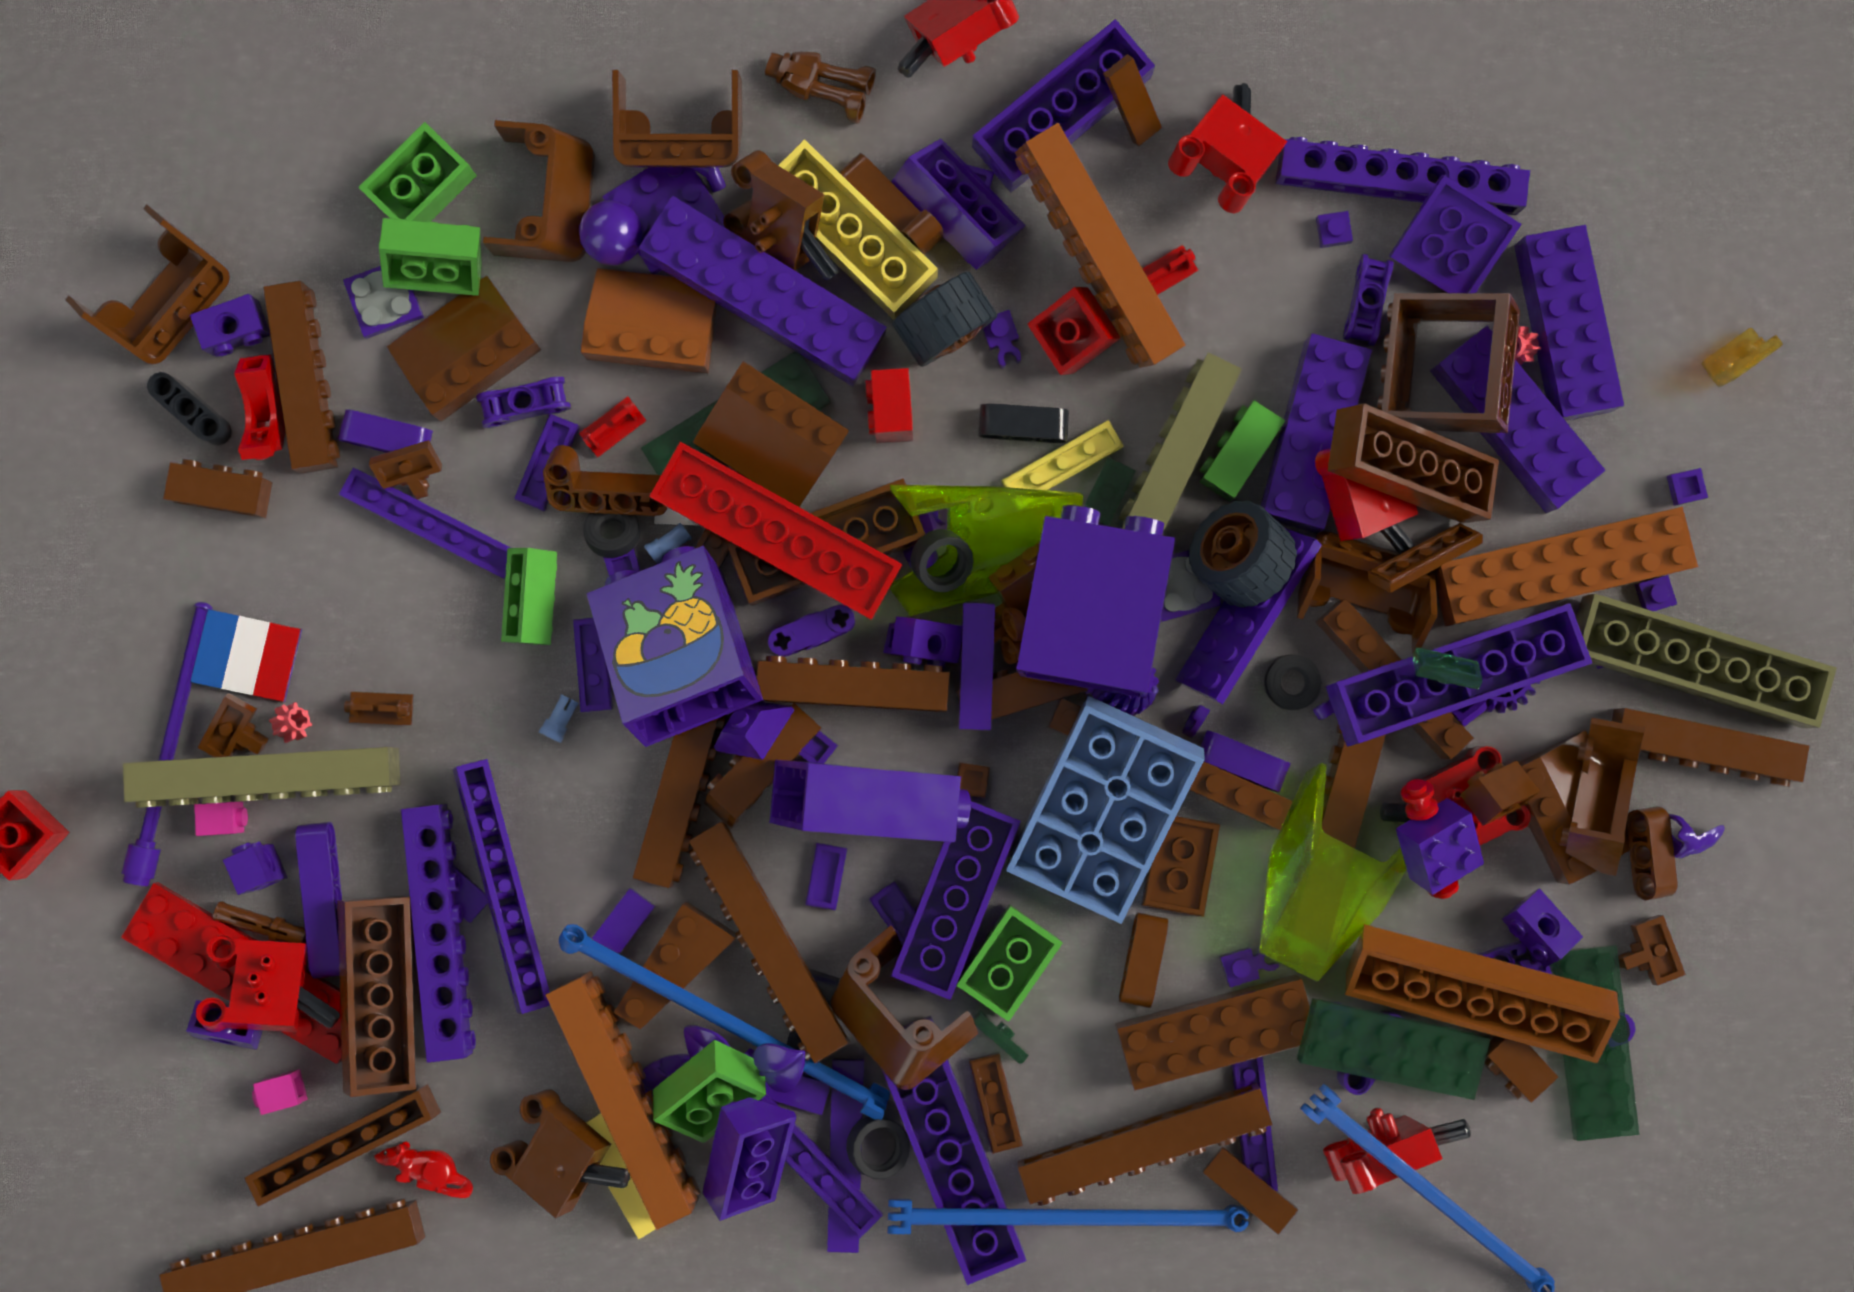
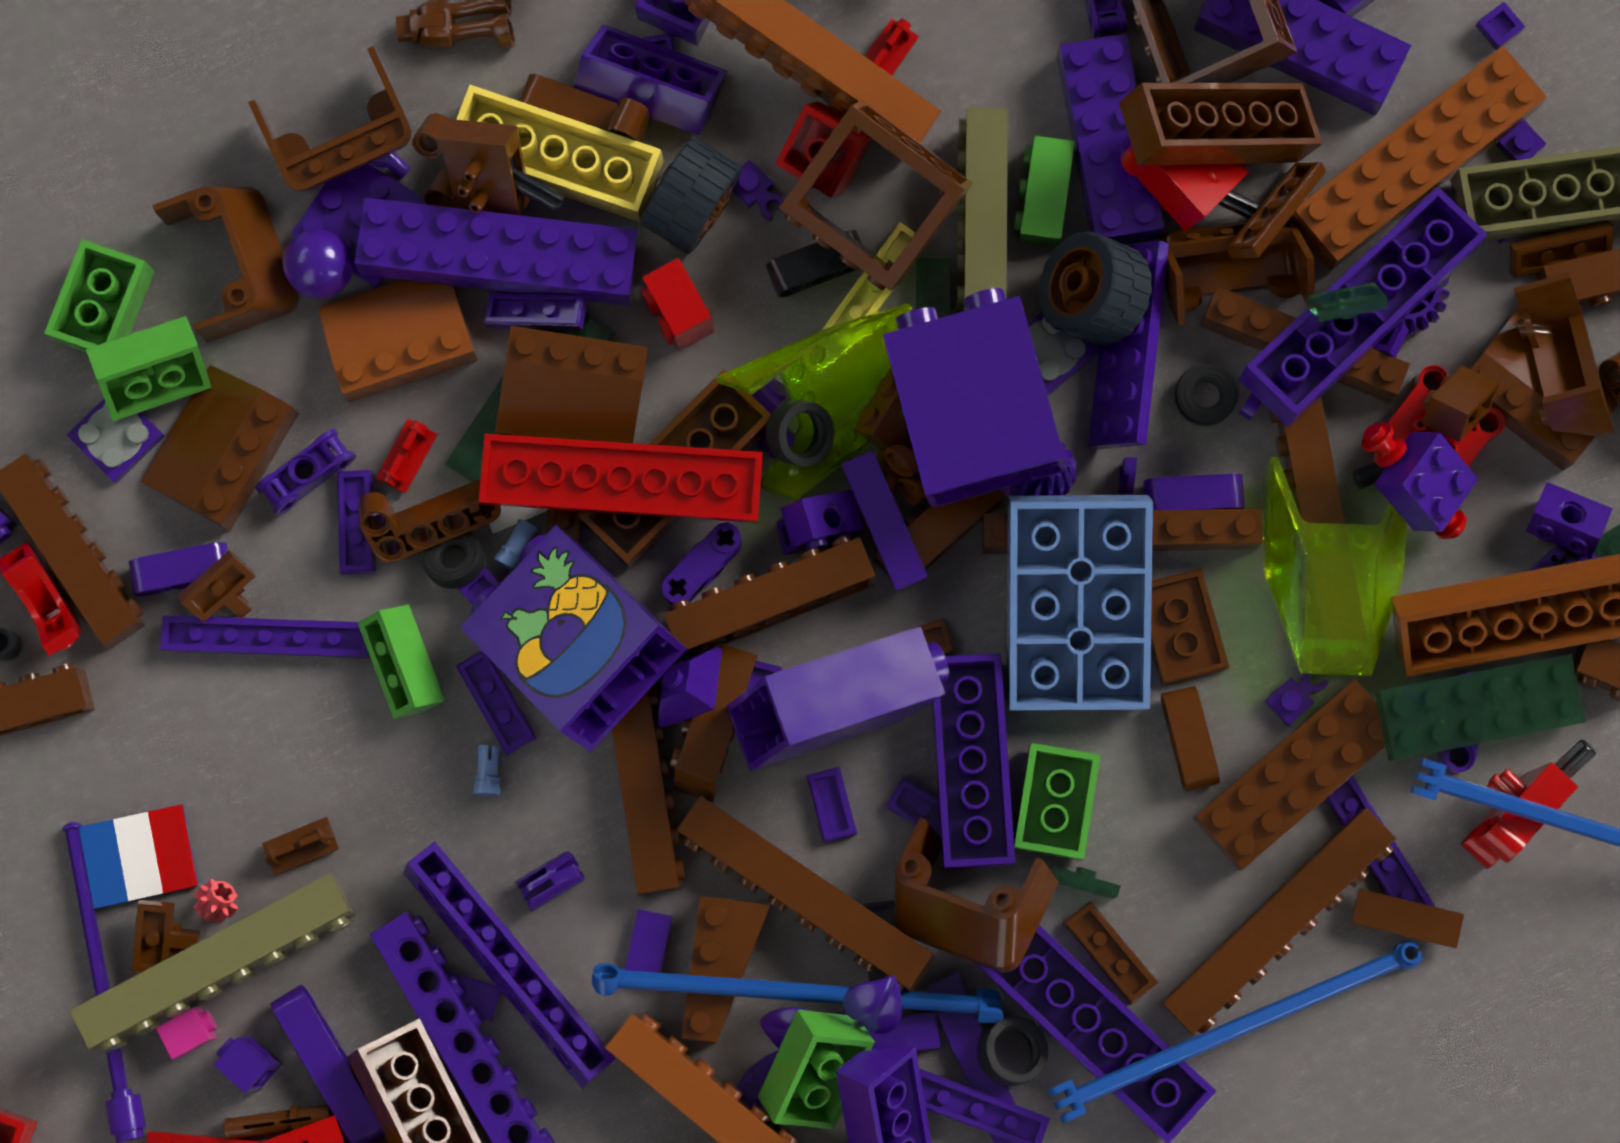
camera: 15 degrees left, 5 degrees down
(569, 832) = (550, 880): none -> dark purple arm
(773, 355) = (536, 310): none -> dark purple tile
(1141, 369) = (949, 181): none -> reddish brown window
(1645, 697) = (1535, 253): none -> reddish brown tile

